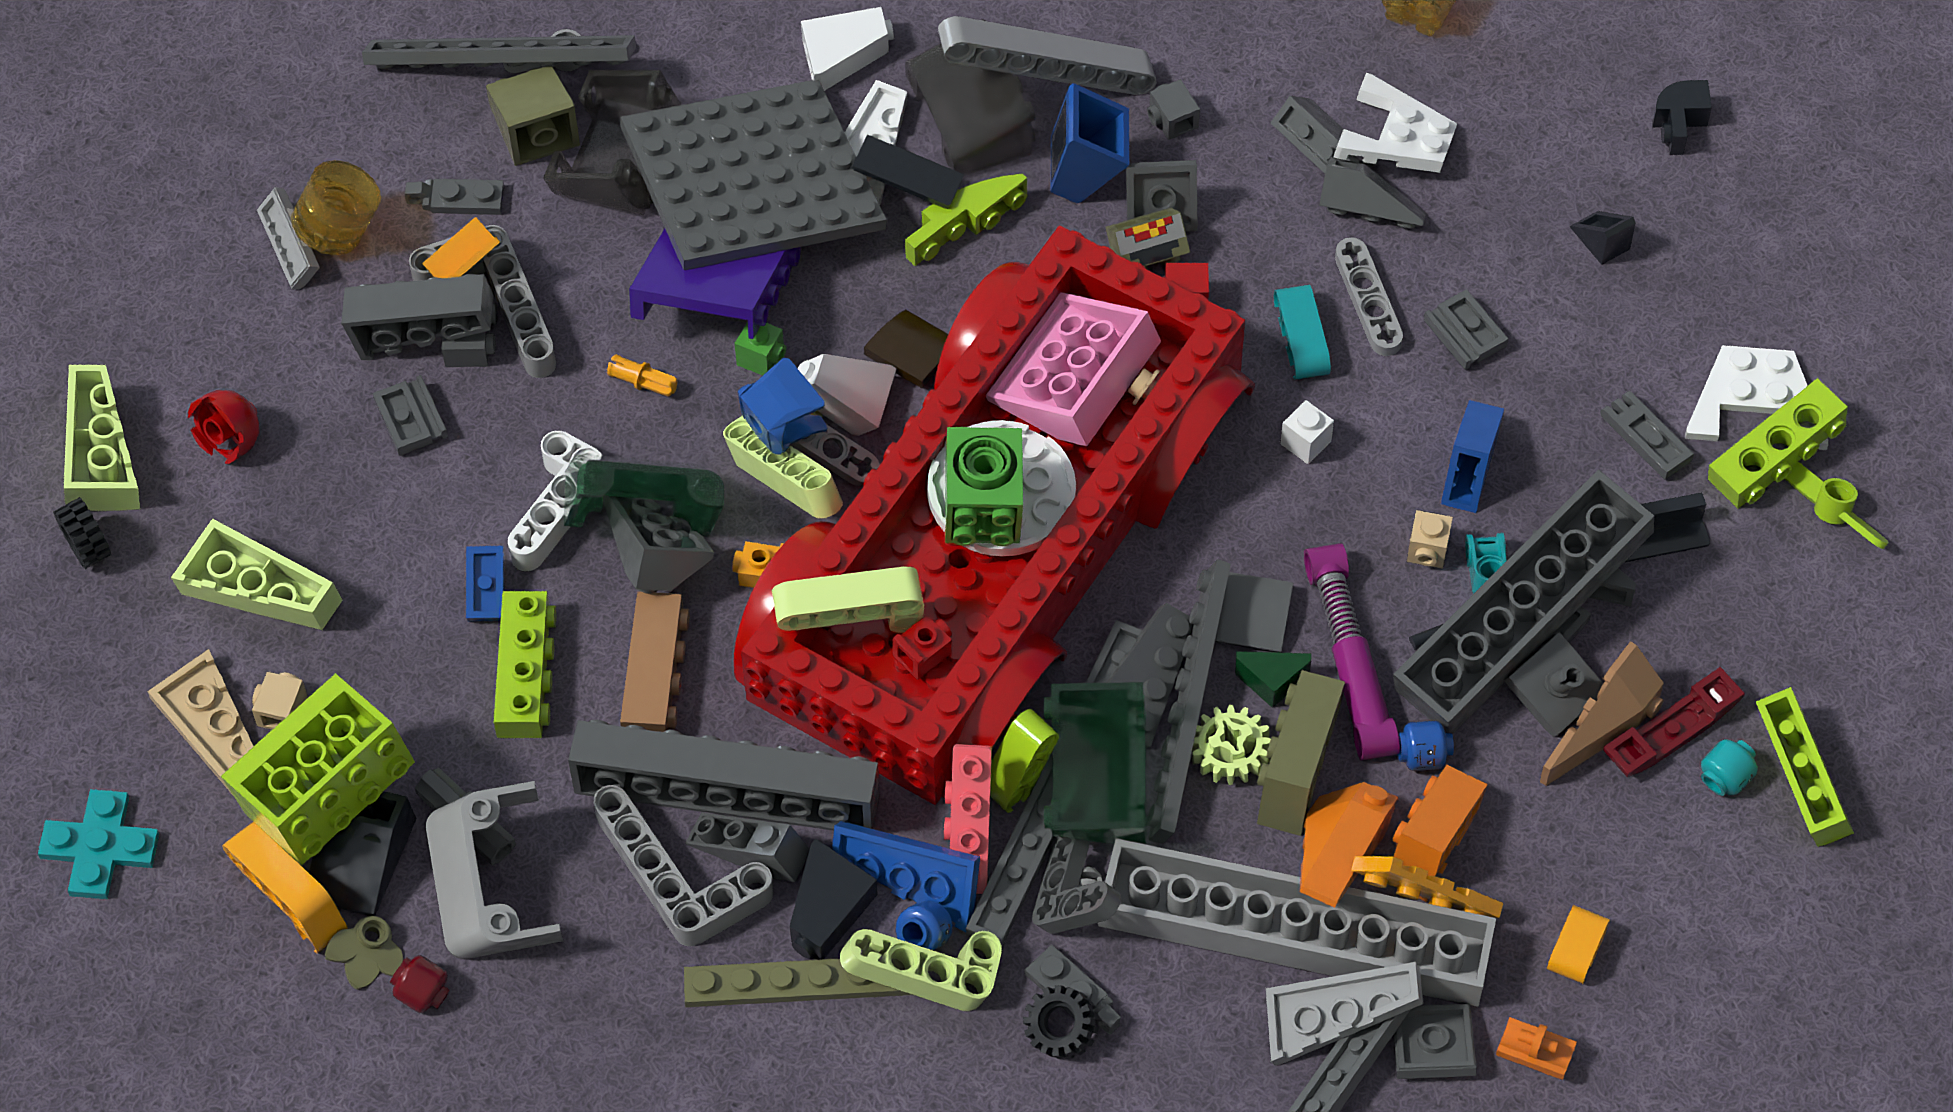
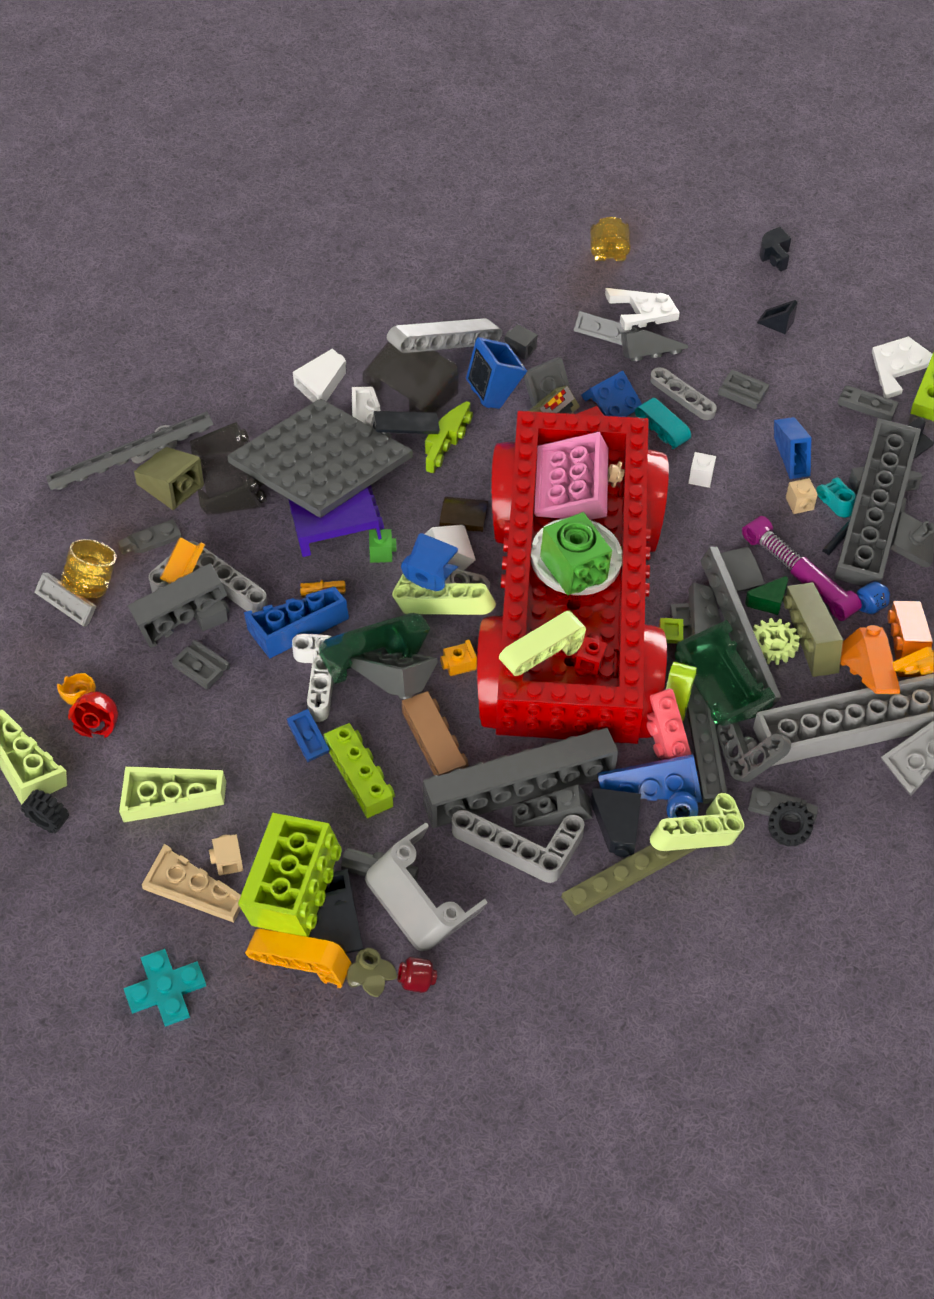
camera: 30 degrees left, 5 degrees down
(216, 374) = (72, 684): none -> light orange hair
(571, 404) = (278, 625): none -> blue wedge
(1082, 660) = (673, 629): none -> lime plate
(1254, 260) = (614, 396): none -> blue bracket

